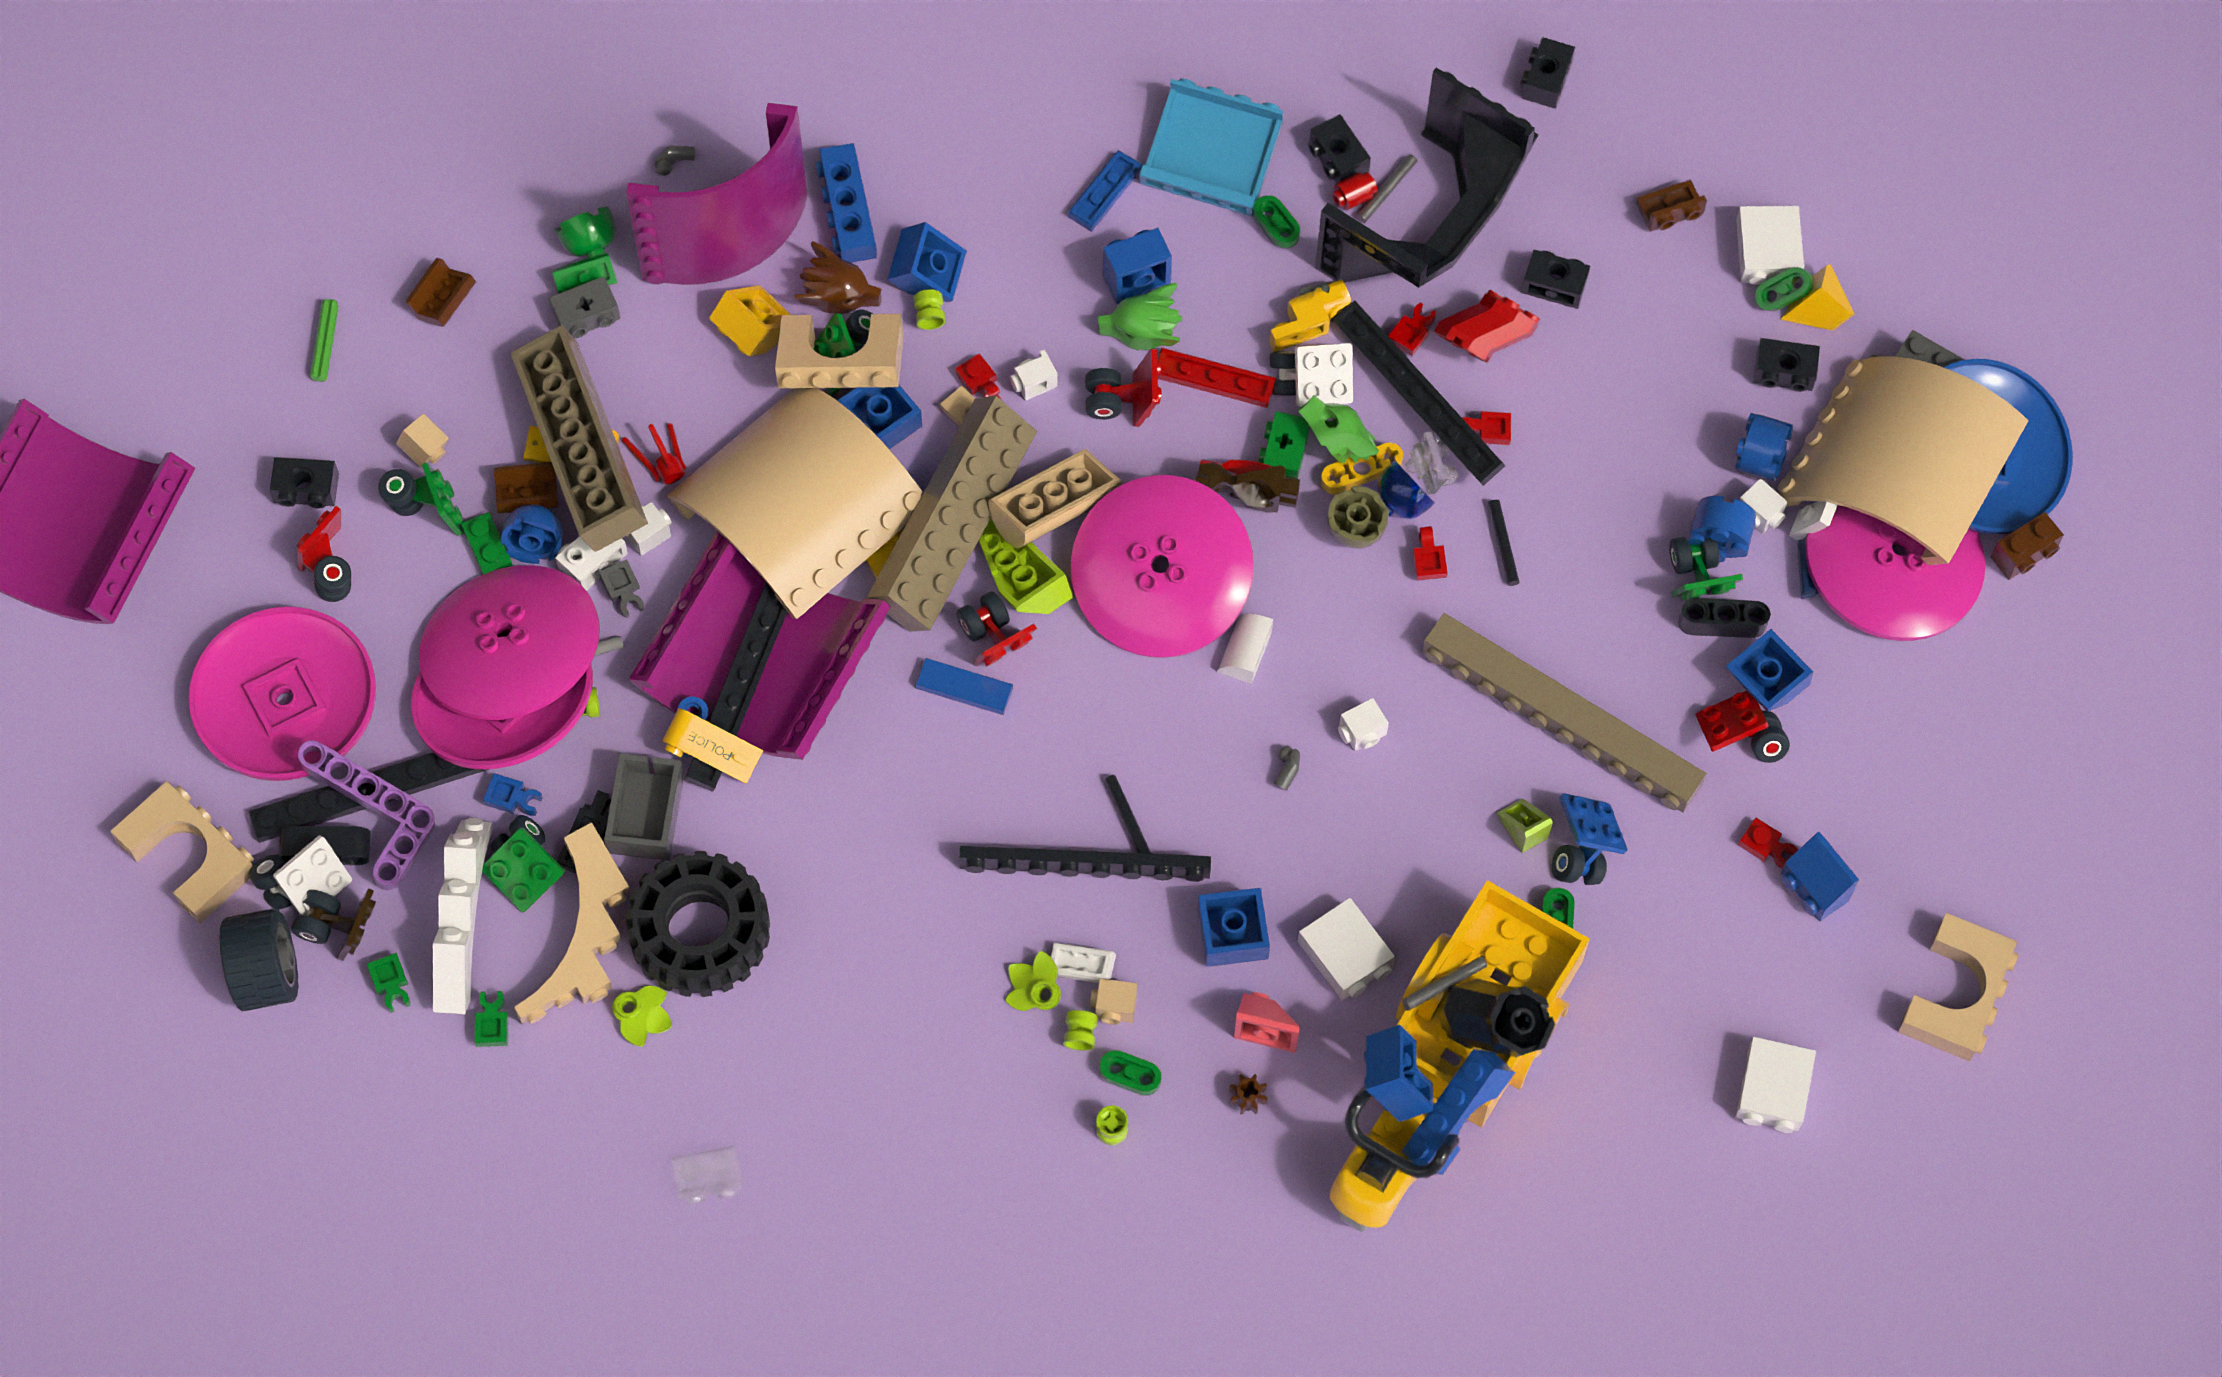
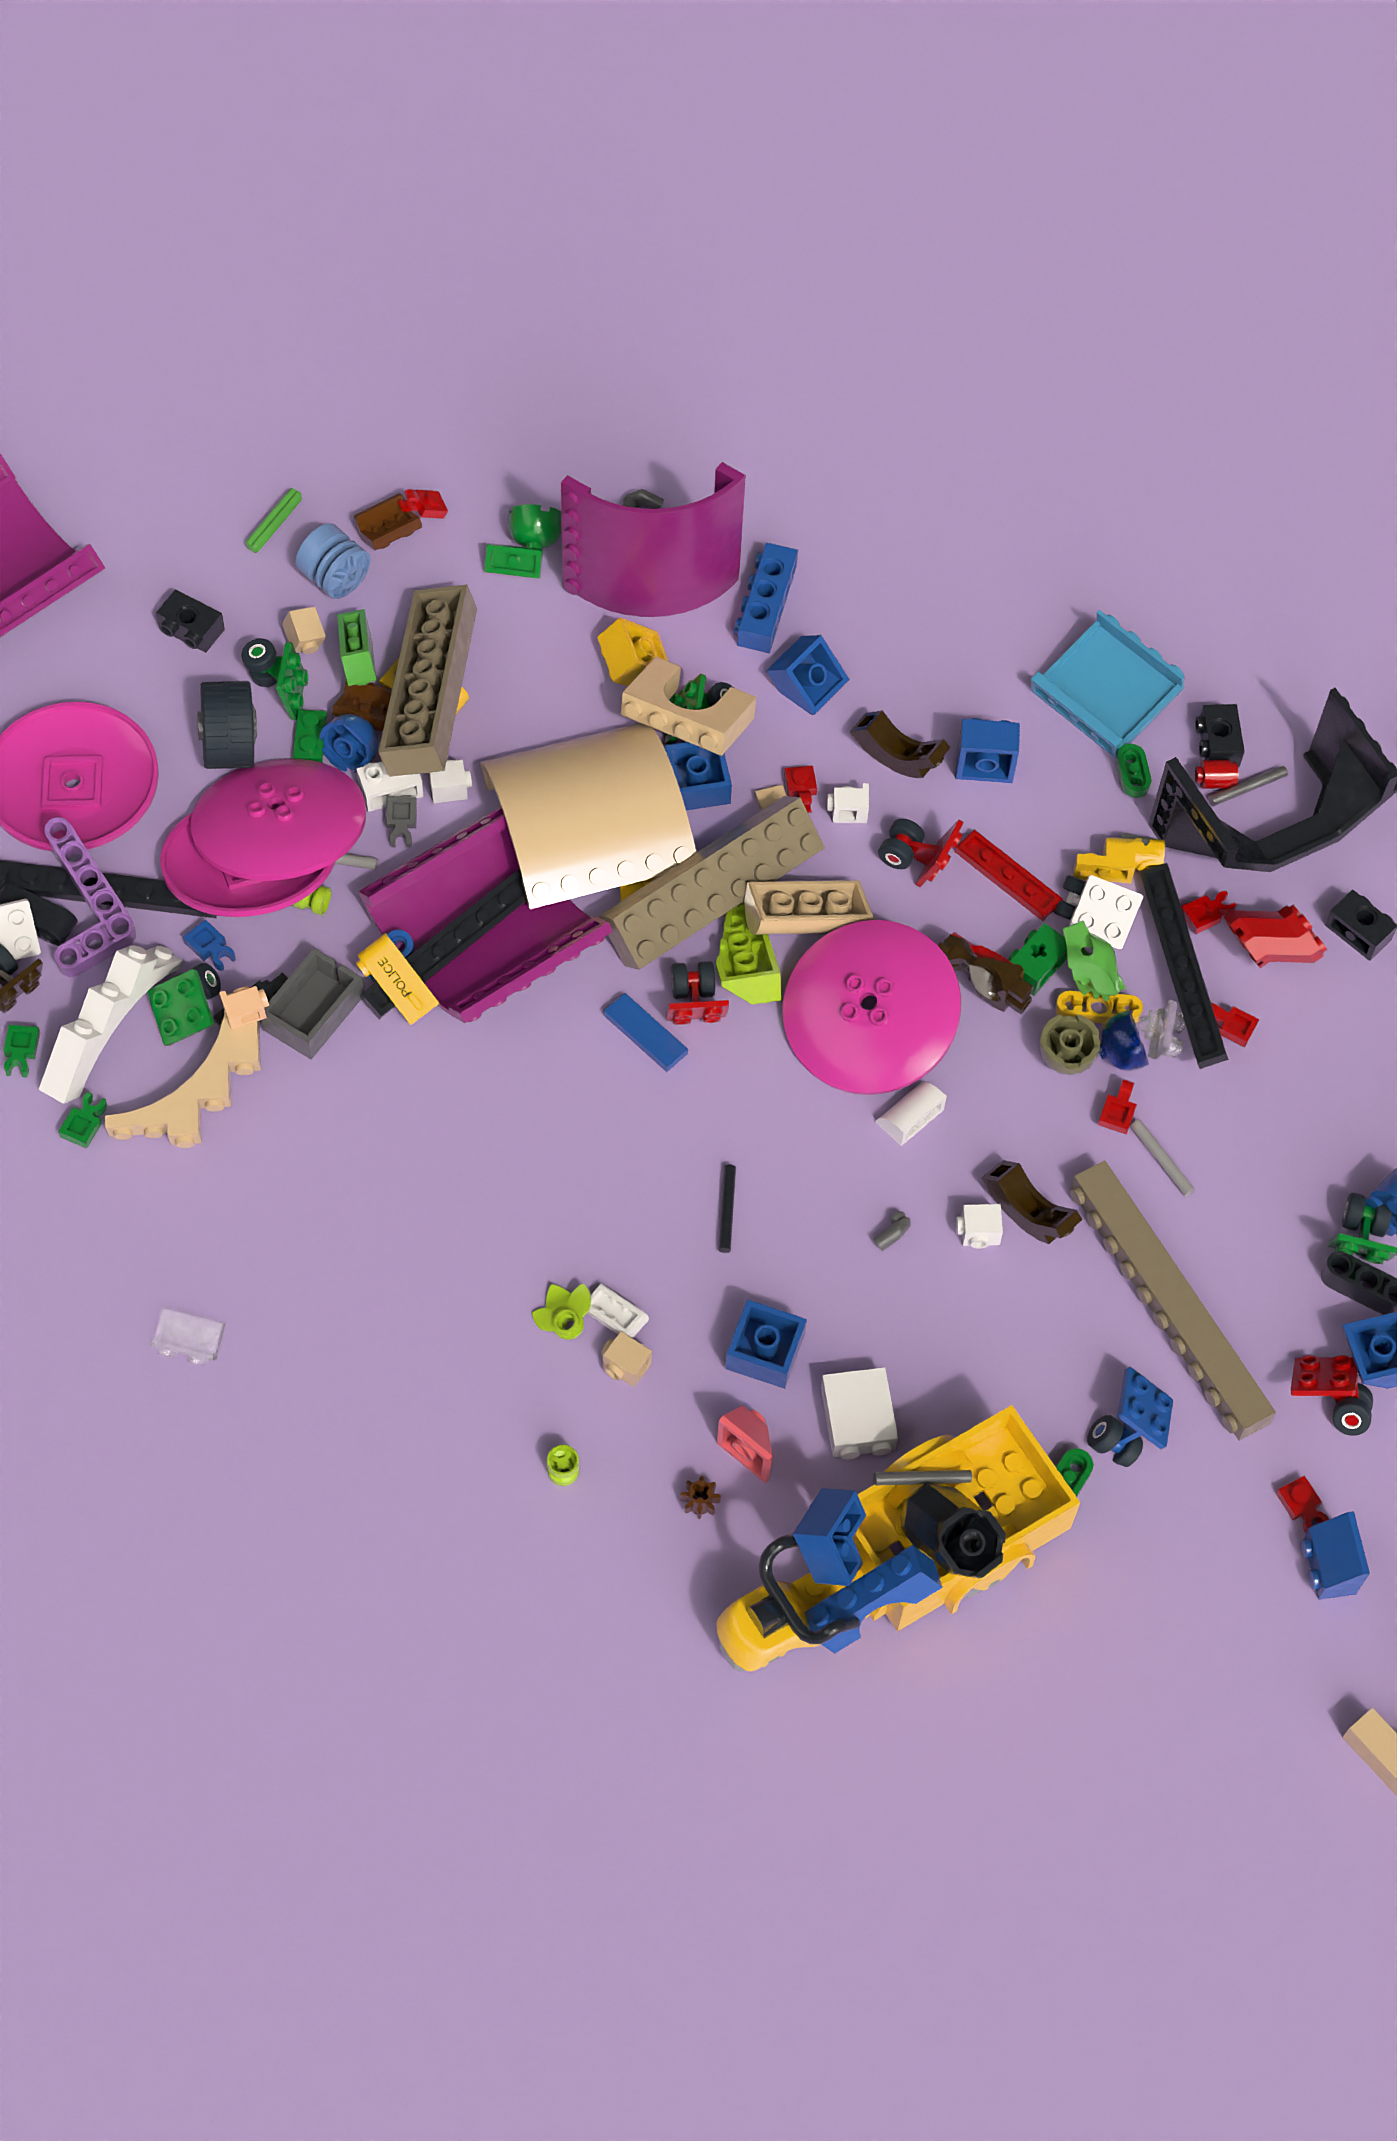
camera: 25 degrees right, 5 degrees down
(314, 552) = (162, 678): plate -> none
(409, 572) = (227, 724): none -> black wheel
(412, 358) = (333, 561): none -> medium blue wheel
(465, 254) = (426, 502): none -> red plate
(488, 436) = (356, 647): none -> bright green brick
(591, 841) = (244, 1006): none -> light nougat brick
(592, 296) = (499, 585): dark grey brick -> none
(646, 1016) = (214, 1180): lime plate -> none
(669, 467) = (495, 742): red plant -> none
(691, 881) = (294, 1082): black tyre -> none
(834, 282) = (719, 652): reddish brown piece -> none
(929, 305) = (788, 713): lime wheel -> none
(1050, 302) = (896, 750): none -> dark brown arch
(1080, 1030) = (581, 1369): lime wheel -> none
(1098, 864) = (672, 1230): black plate -> none
(1104, 190) = (995, 682): blue tile -> none
(1132, 1070) = (606, 1429): green plate -> none
(1145, 319) = (971, 796): bright green piece -> none
(1395, 688) = (1026, 1206): none -> dark brown arch
(1489, 584) = (1162, 1157): none -> light grey bar
(1503, 542) = (1194, 1128): black bar -> none
(1525, 824) = (1083, 1381): lime slope -> none
(1775, 1085) = (1196, 1727): white brick -> none

